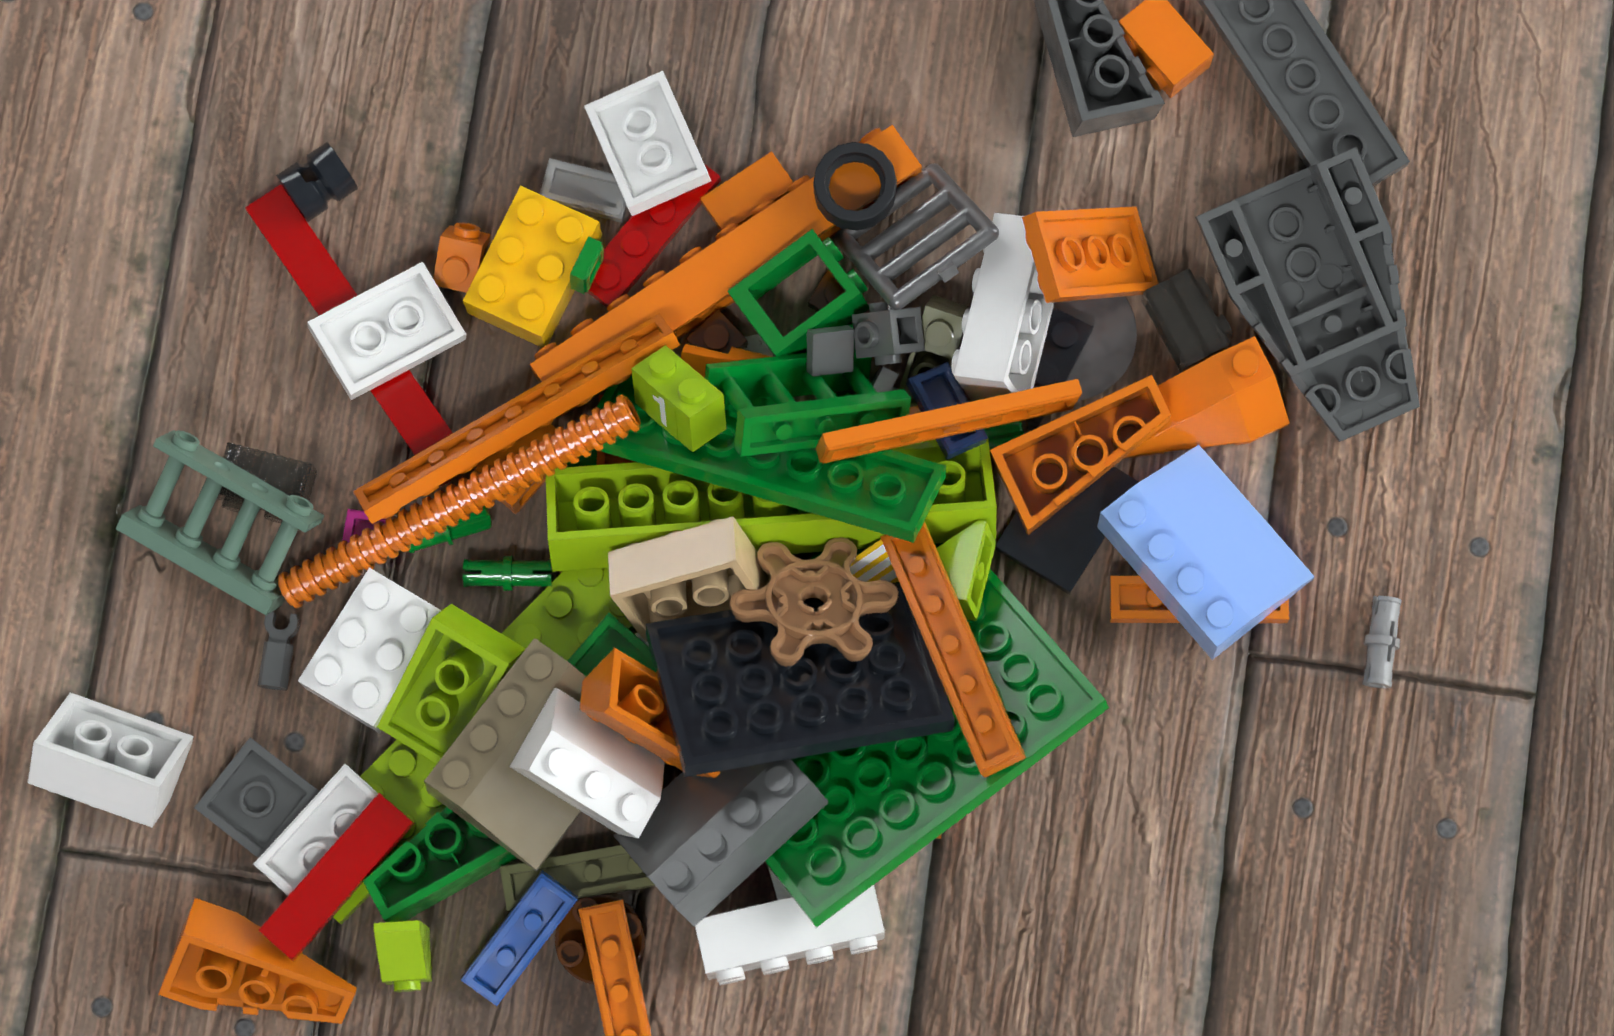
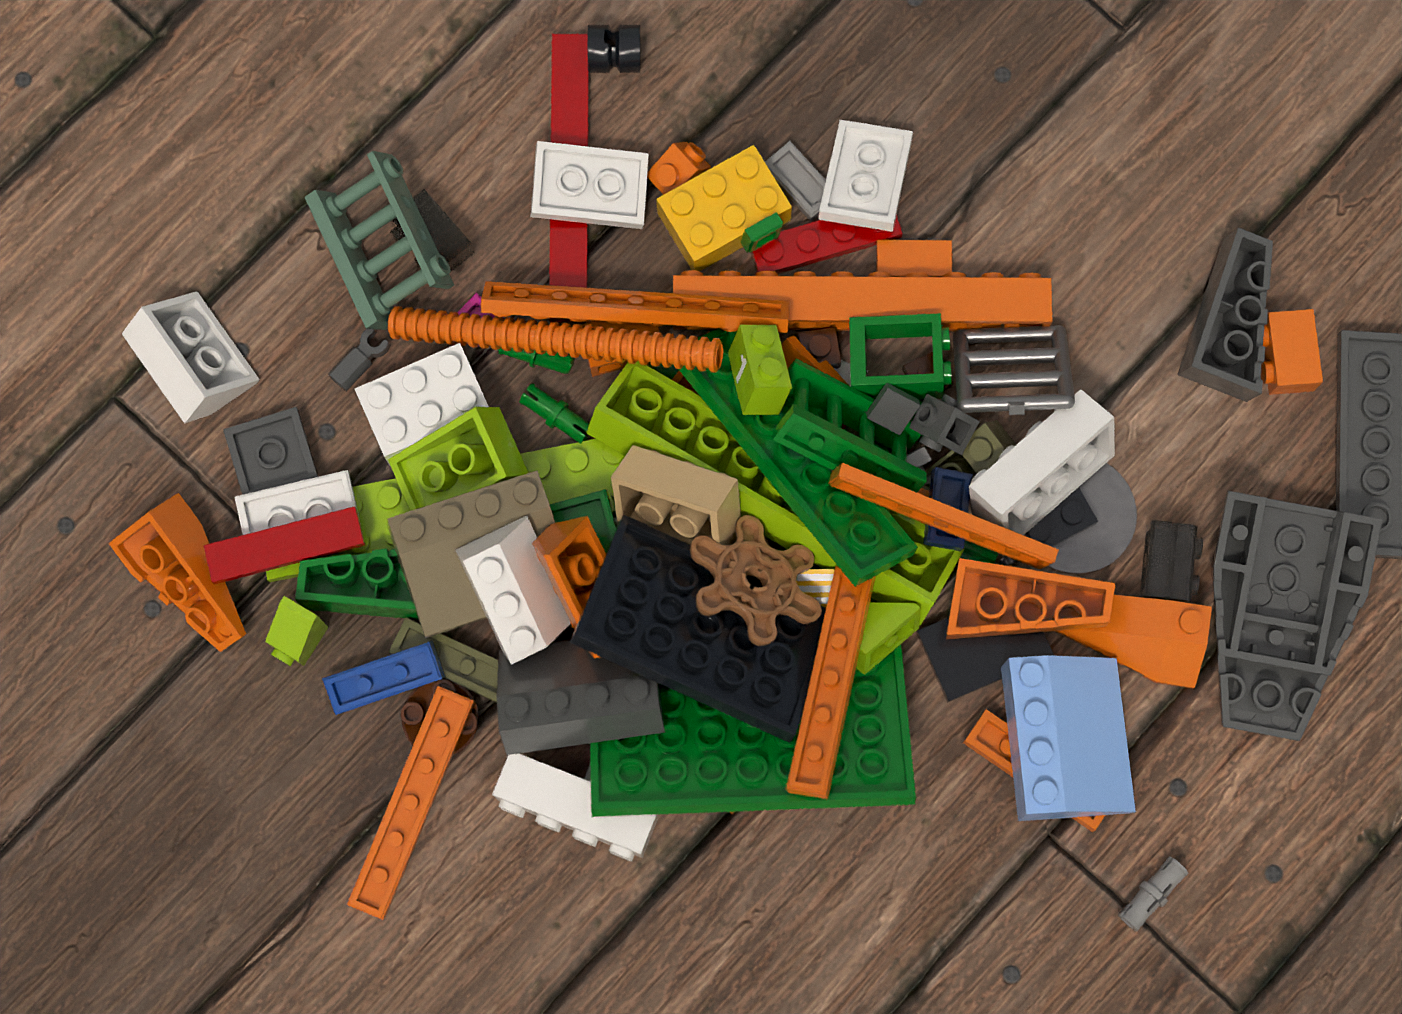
camera: 30 degrees right, 0 degrees up
(846, 154) = (1005, 277): black tyre -> none
(1089, 253) = (1130, 465): orange plate -> none

